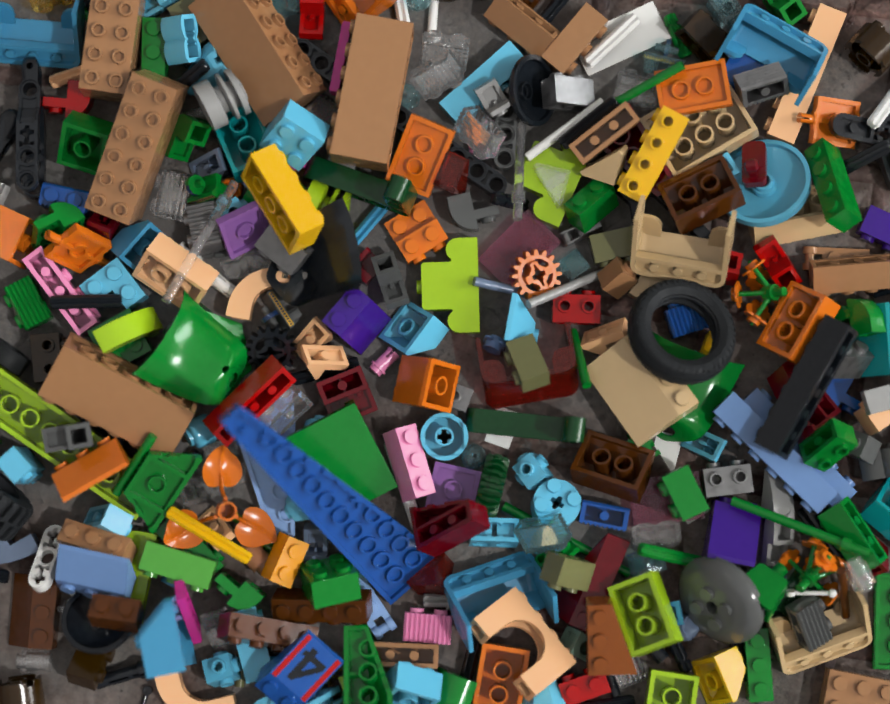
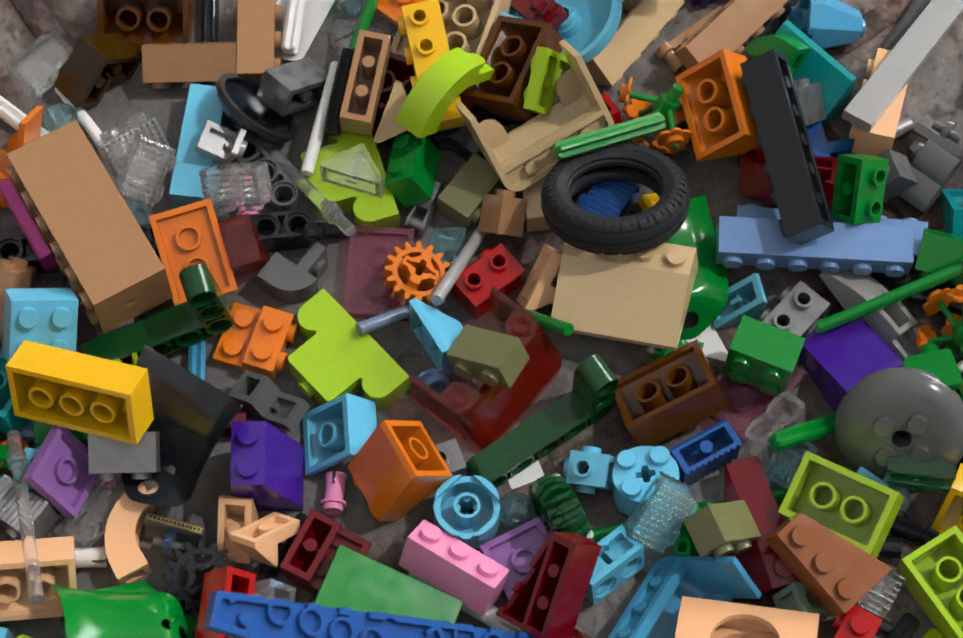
camera: 45 degrees left, 20 degrees down
(639, 180) = (438, 89): none -> lime arch
(698, 626) = (913, 474): none -> clear green plate
(712, 217) = (545, 70): none -> lime wing
(714, 289) = (609, 136): none -> green axle
(777, 262) = (647, 78): red brick -> none

